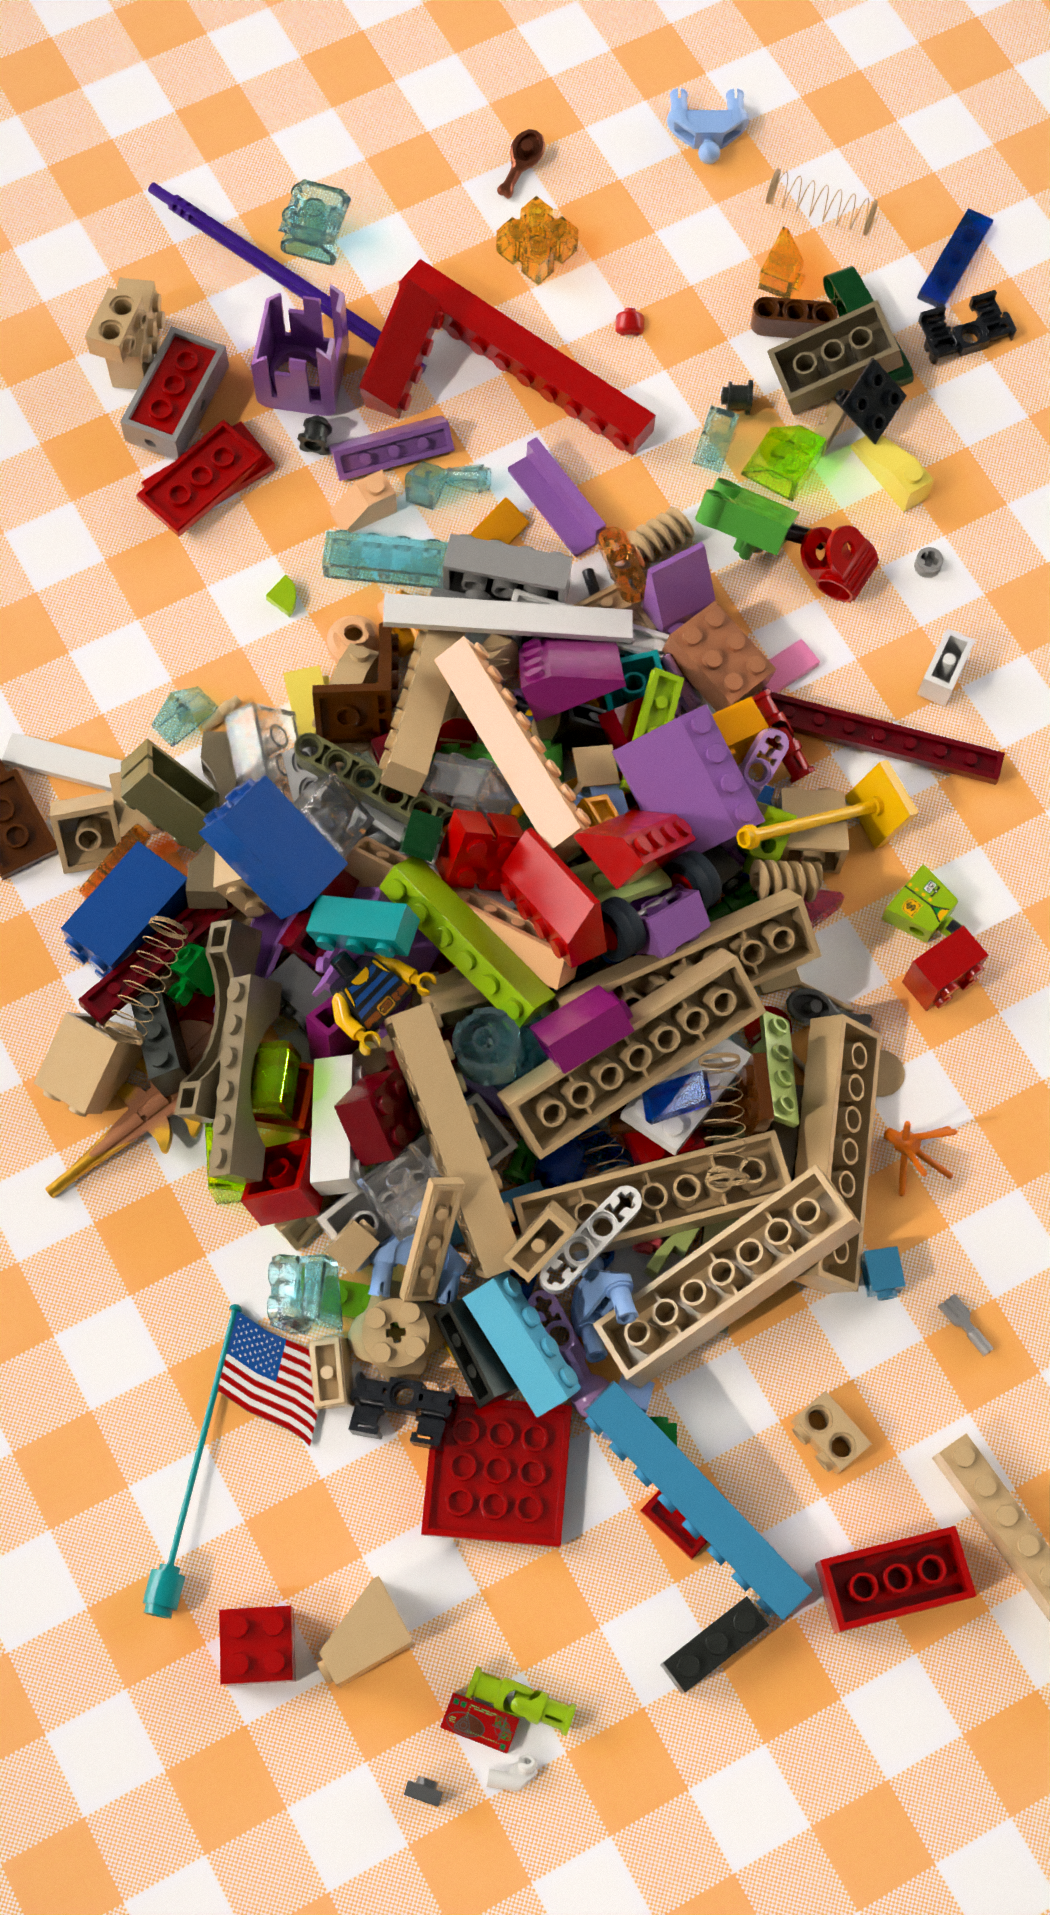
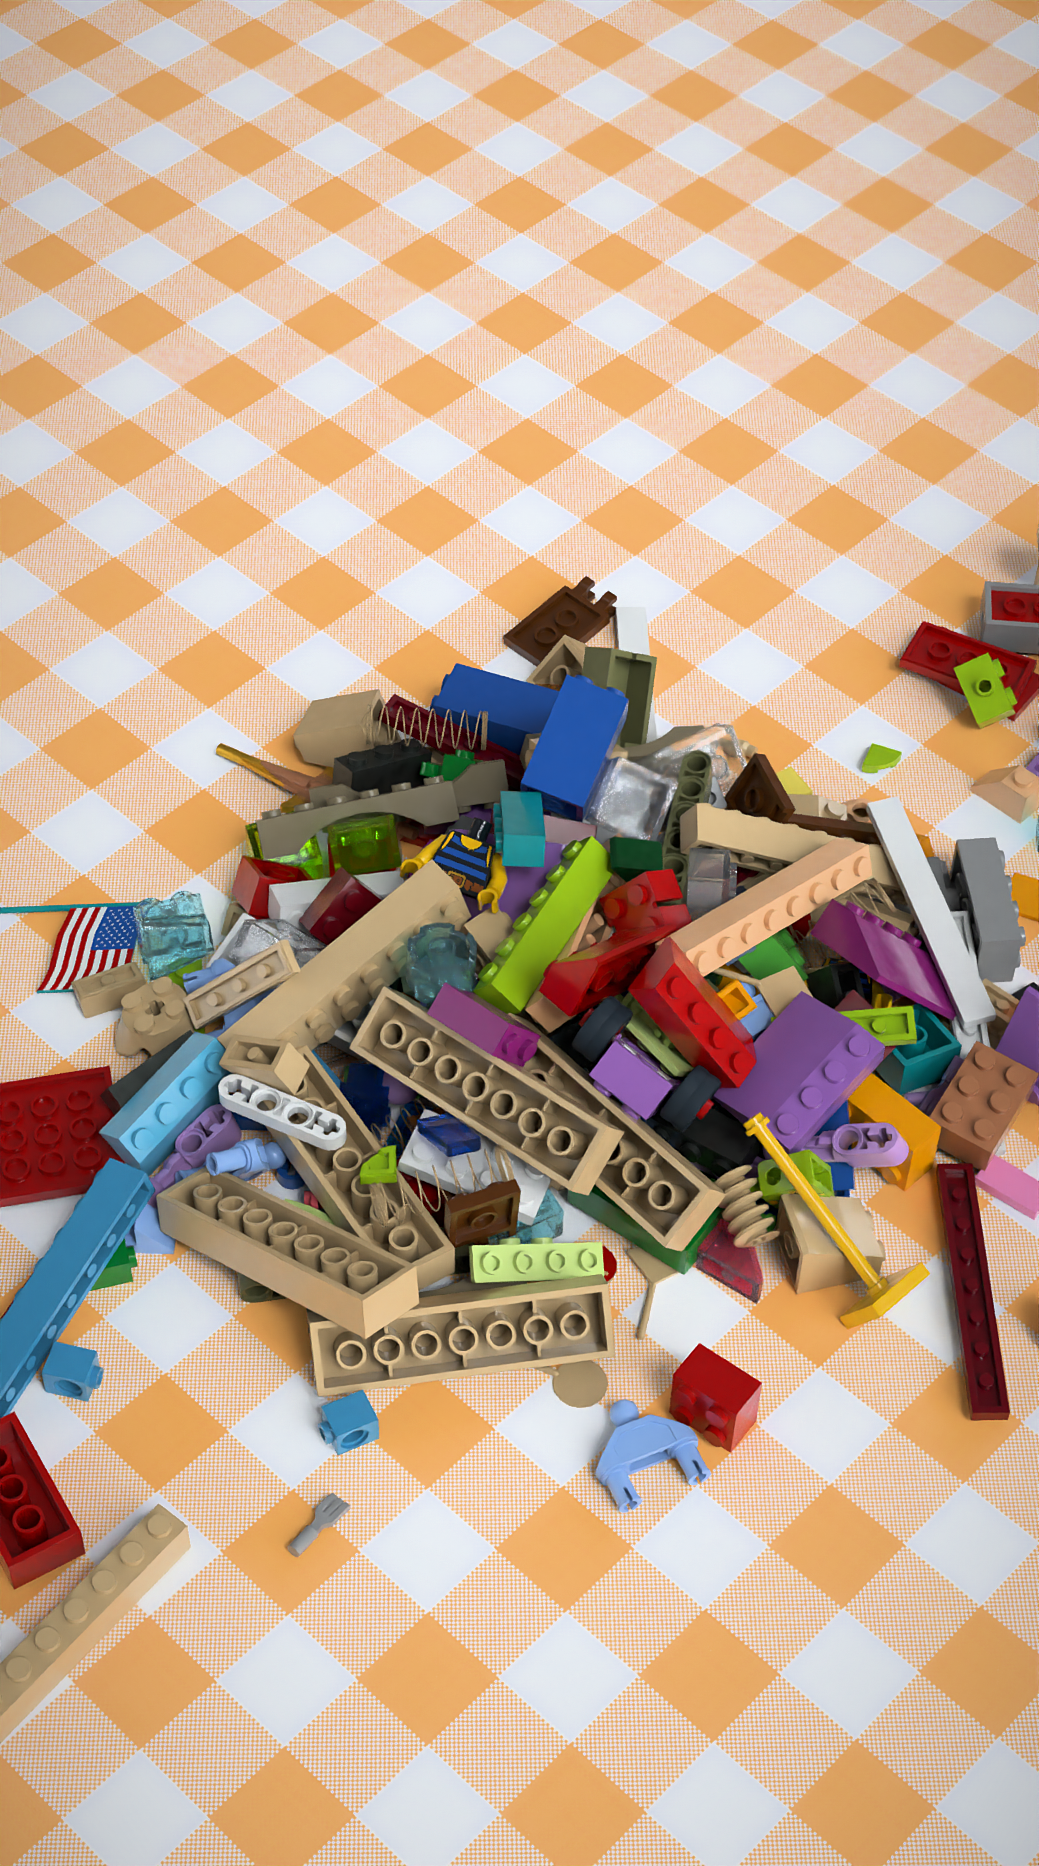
camera: 75 degrees right, 20 degrees down
(182, 714) = (722, 709): clear light blue slope -> none
(252, 475) = (985, 690): none -> lime brick
(353, 1245) = (217, 939): tan brick -> none
(384, 559) = (951, 805): clear light blue brick -> none
(430, 1403) = (96, 1027): black piece -> none
(675, 1168) = (380, 1167): none -> lime tile
(769, 1501) = (72, 1371): none -> dark azure brick
(794, 759) = (914, 1195): red piece -> none
(811, 1003) = (627, 1299): dark grey piece -> none
(837, 1427) = (167, 1415): tan brick -> none
(909, 1146) = (502, 1418): orange plant -> none
(923, 907) = (788, 1372): lime torso -> none
(963, 1046) = (642, 1444): none -> light blue connector

